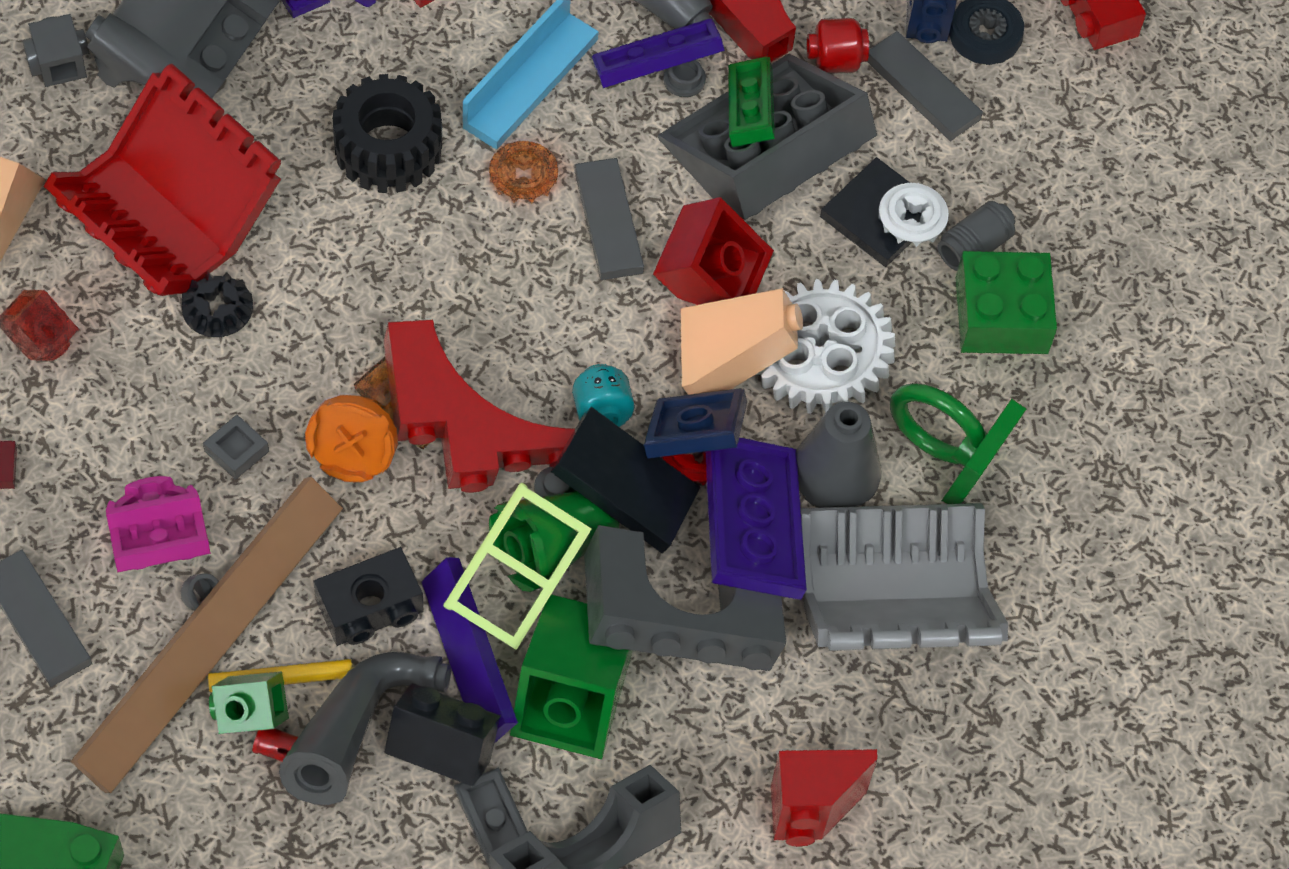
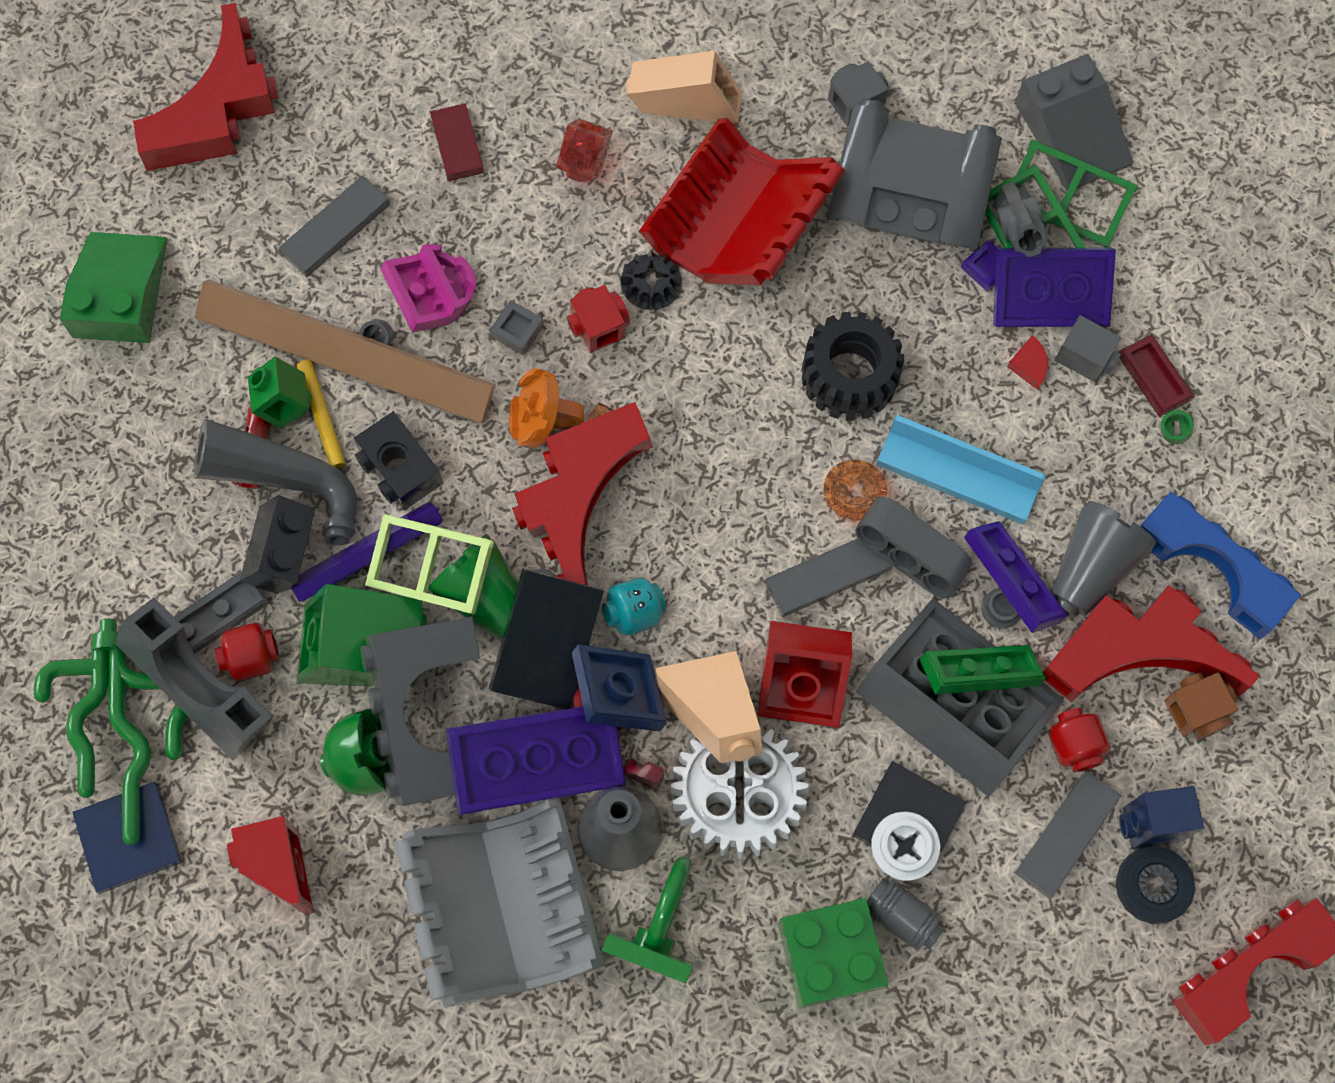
camera: 80 degrees right, 10 degrees up
(251, 361) = (598, 317): none -> red brick
(559, 793) = (247, 652): none -> red head
(605, 130) = (913, 547): none -> dark grey beam
(709, 695) = (353, 755): none -> green cylinder
(793, 424) = (647, 774): none -> dark red tile

